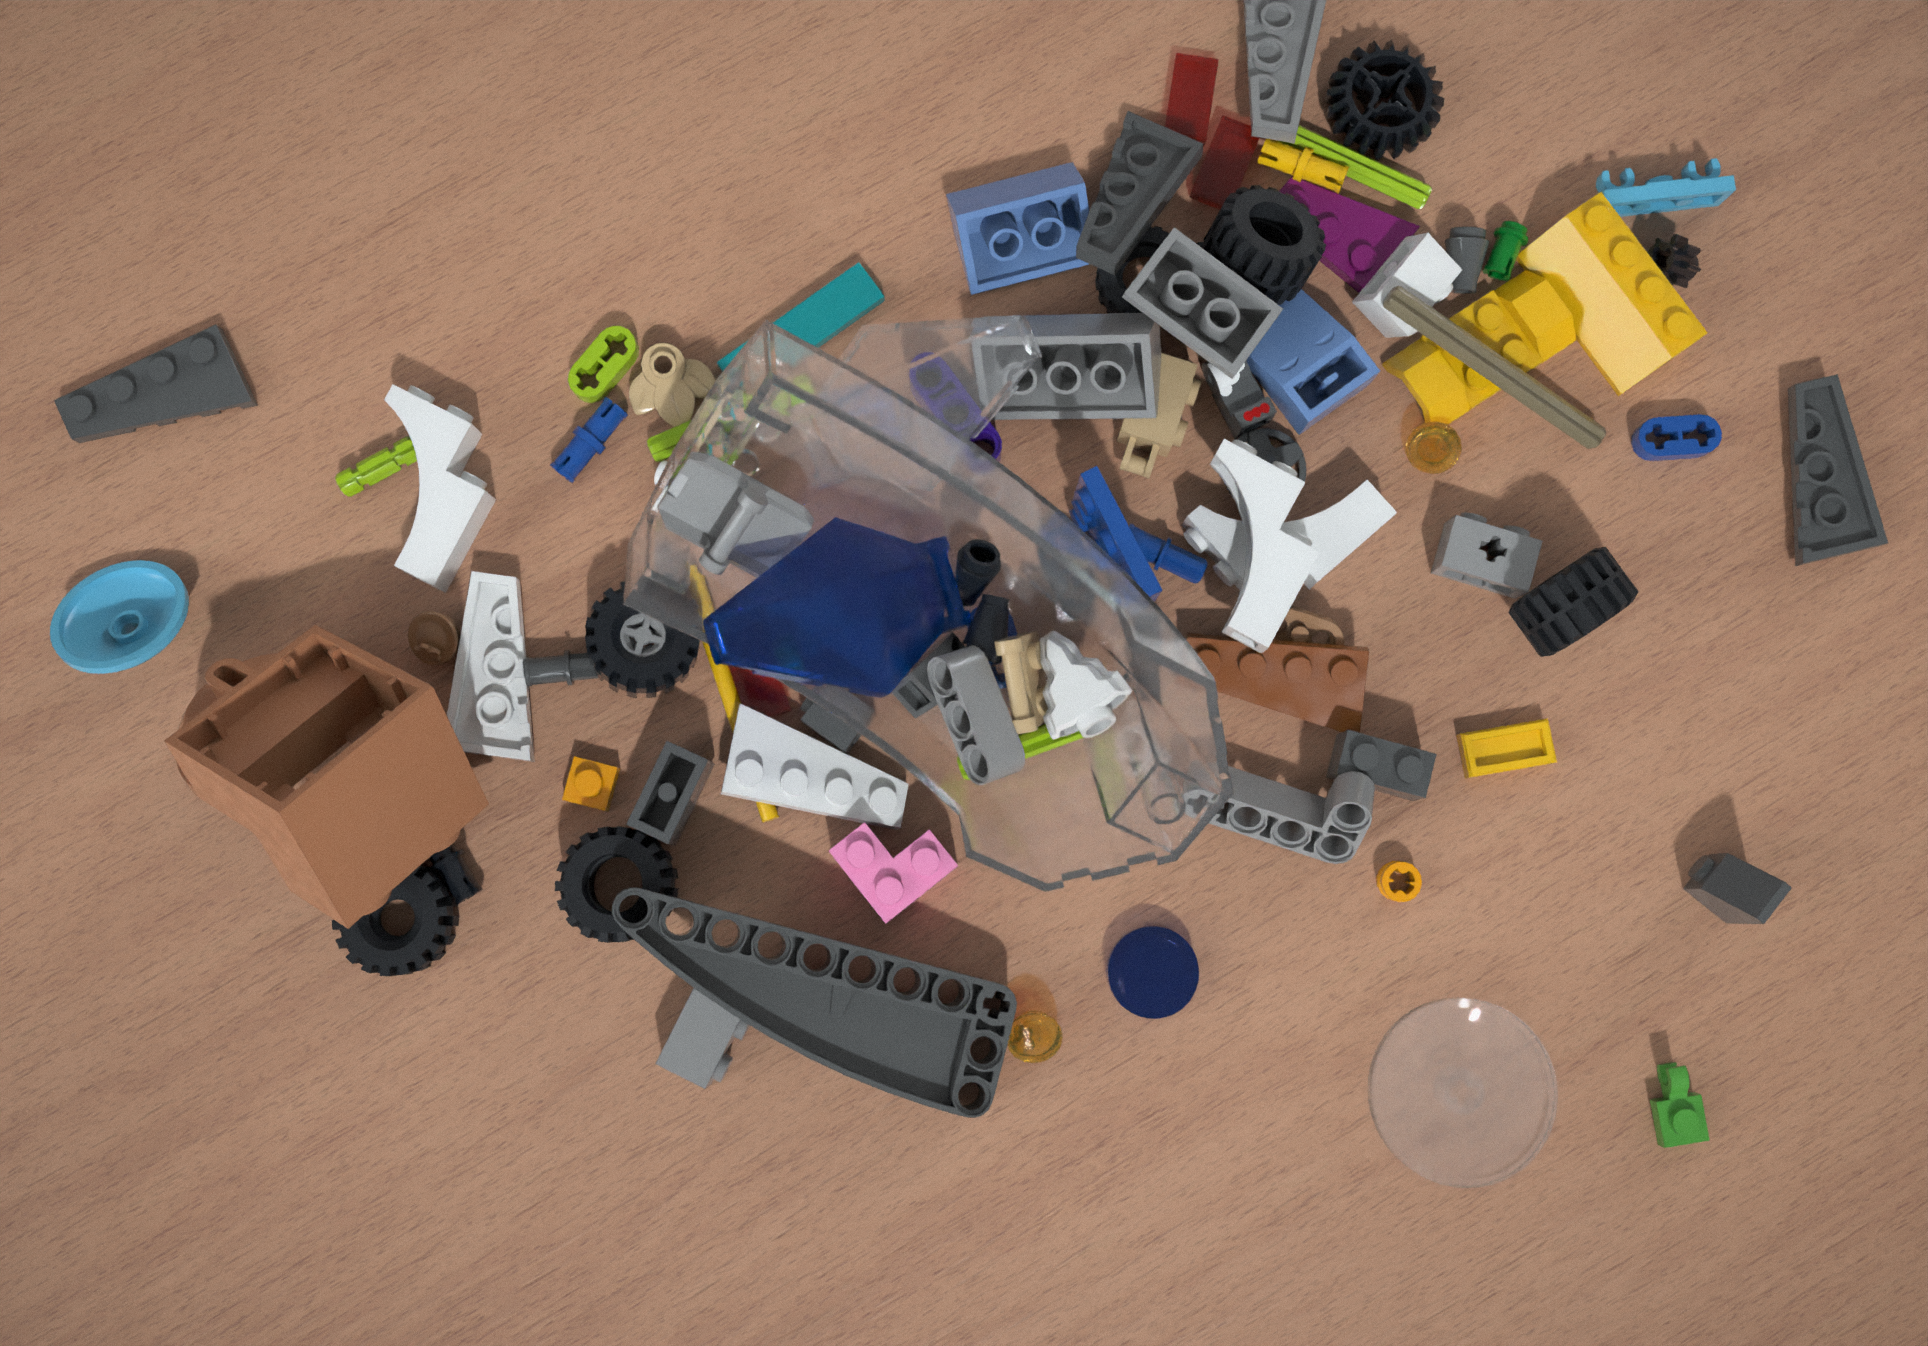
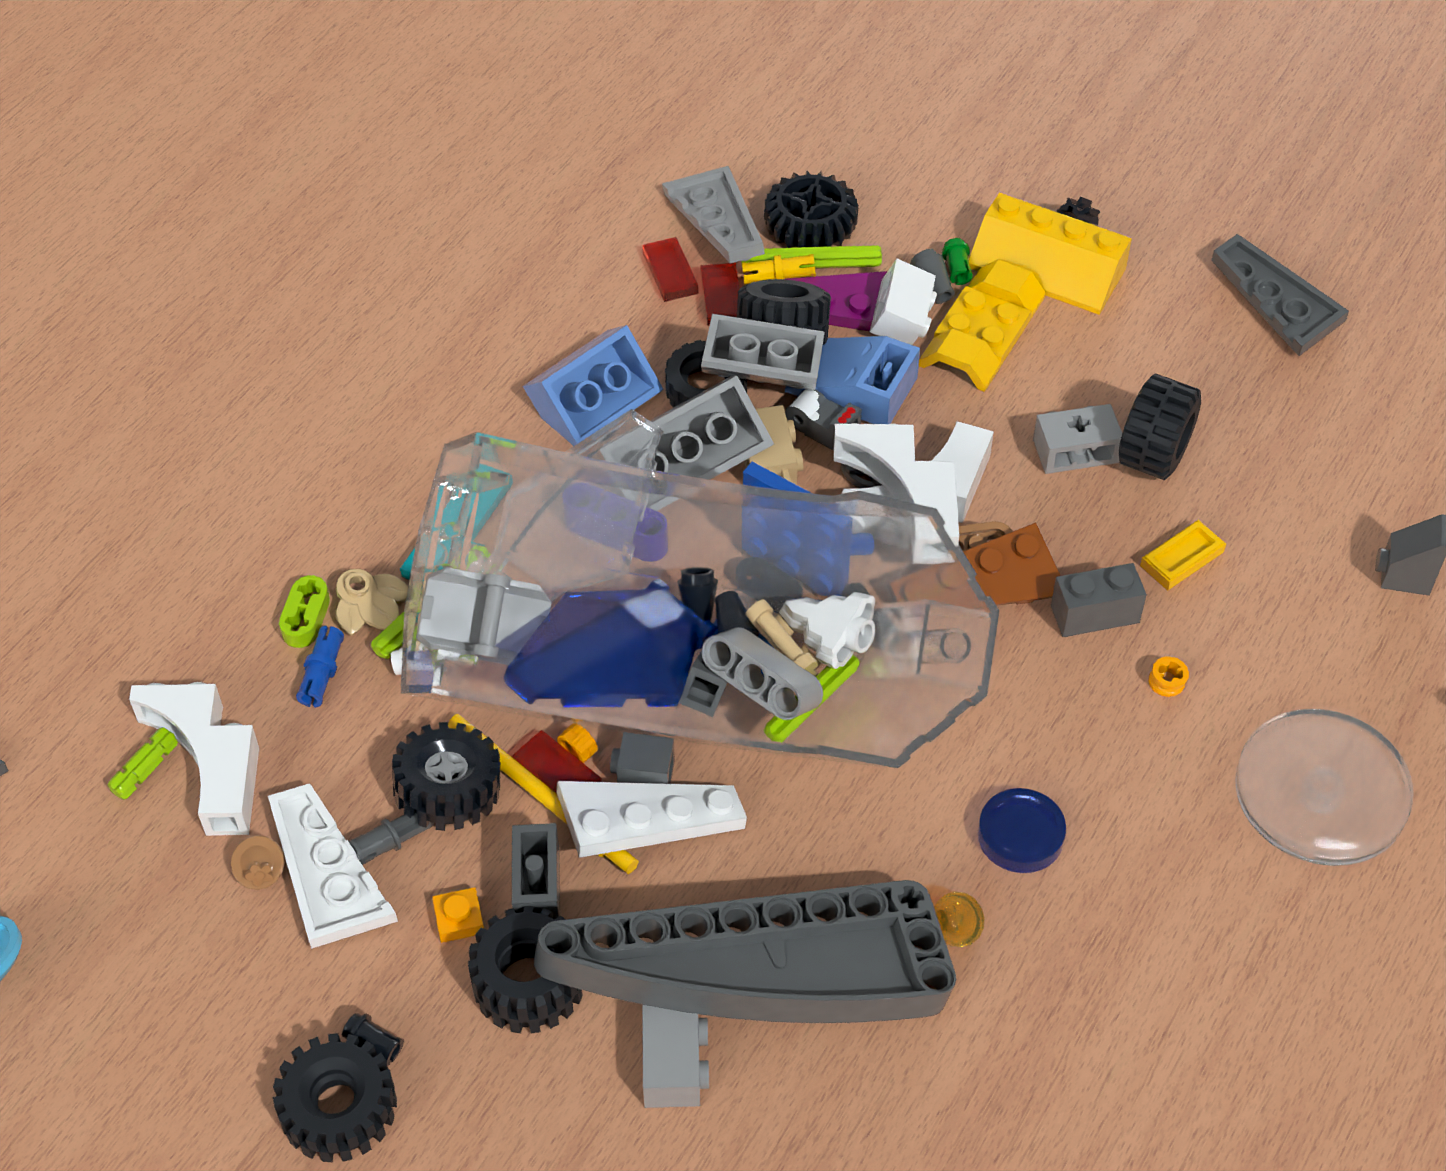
camera: 25 degrees left, 30 degrees down
(368, 811) = (235, 947): nougat piece -> none
(888, 881) = (759, 856): bright pink brick -> none
(1140, 181) = (666, 324): dark grey wing -> none
(1300, 820) = (1076, 653): light grey beam -> none
(1433, 447) = (991, 392): clear yellow hat -> none
(1494, 367) = (1000, 320): dark tan axle -> none
(1666, 194) = (1050, 183): medium azure plate -> none
(1676, 447) = (1159, 320): blue beam -> none

